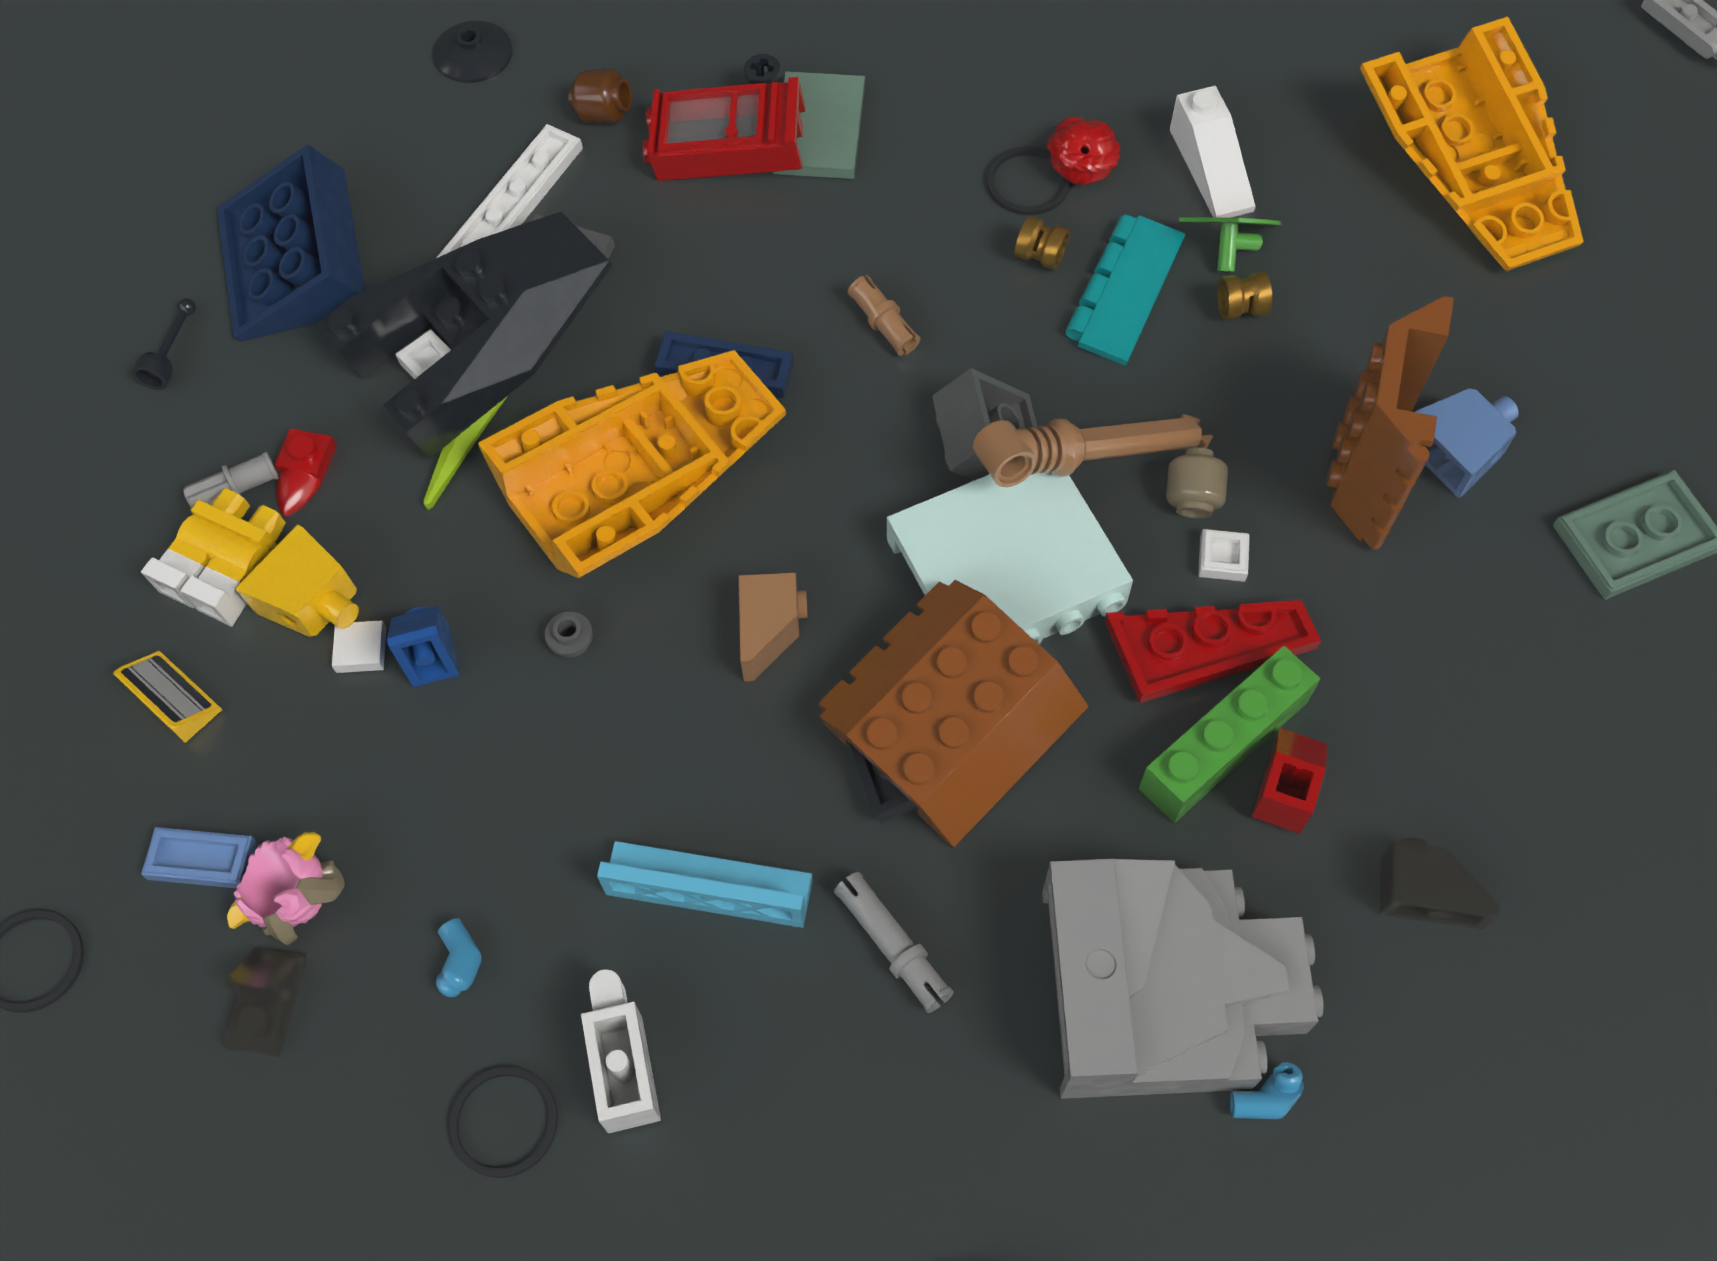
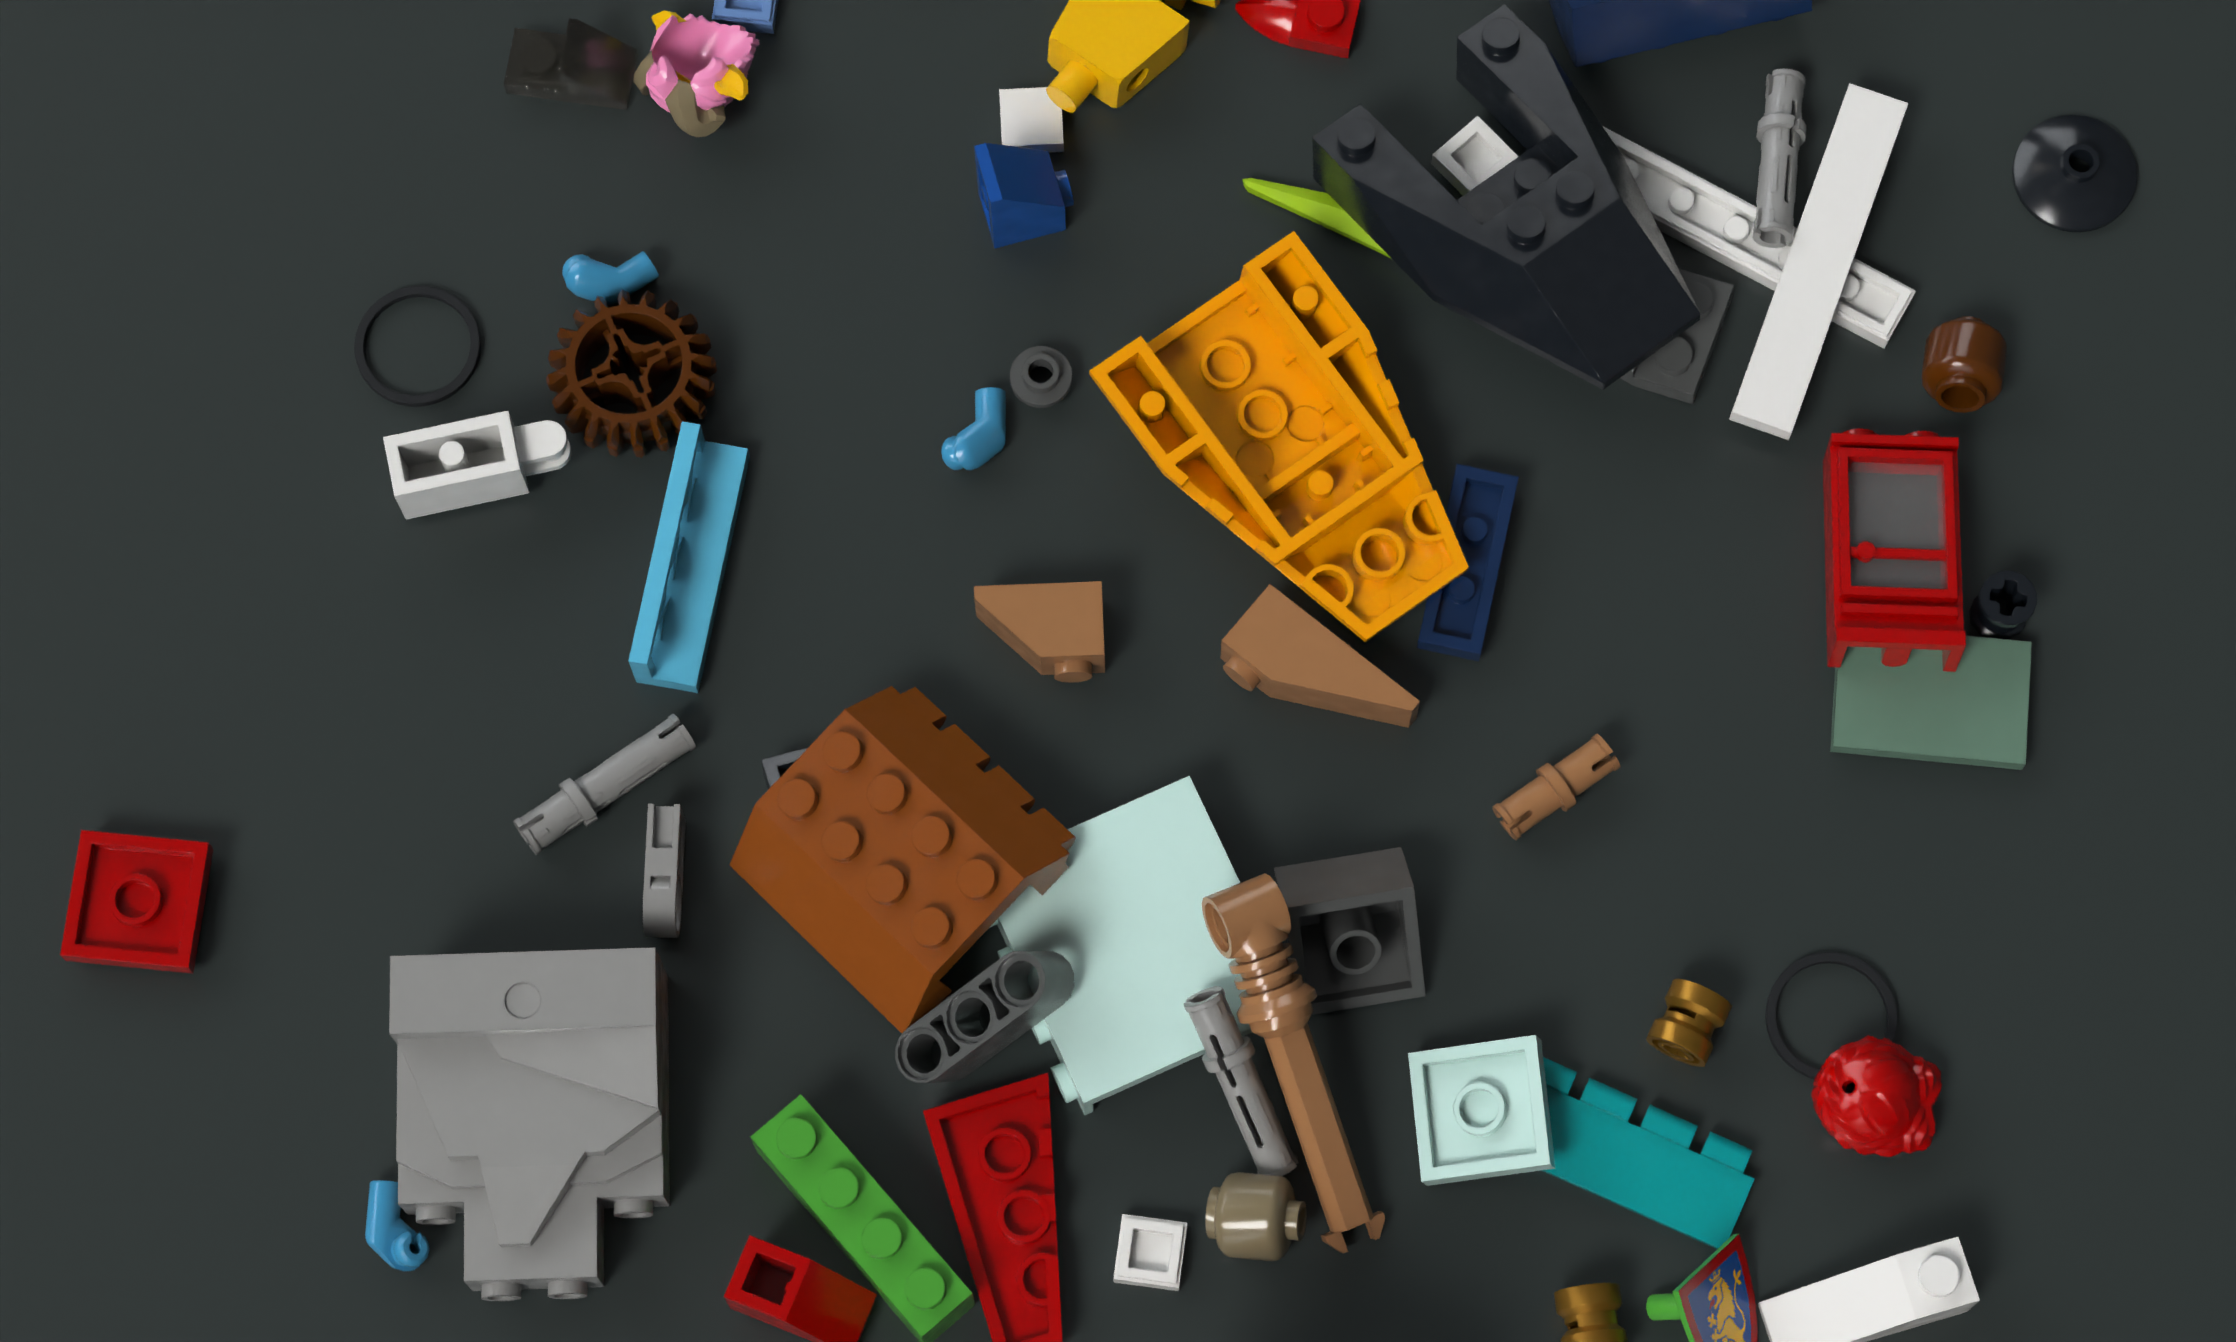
camera: 90 degrees right, 10 degrees up
(434, 188) = (1780, 135): none -> light grey pin
(524, 166) = (1818, 262): none -> white tile
(527, 939) = (652, 361): none -> reddish brown gear
(612, 671) = (983, 437): none -> dark azure arm
(792, 462) = (1307, 664): none -> medium nougat slope
(966, 889) = (663, 871): none -> light grey piece
(1074, 487) = (1231, 1060): none -> light grey pin
(1096, 653) = (957, 1019): none -> dark grey beam
(1111, 352) = (1481, 1110): none -> light aqua plate

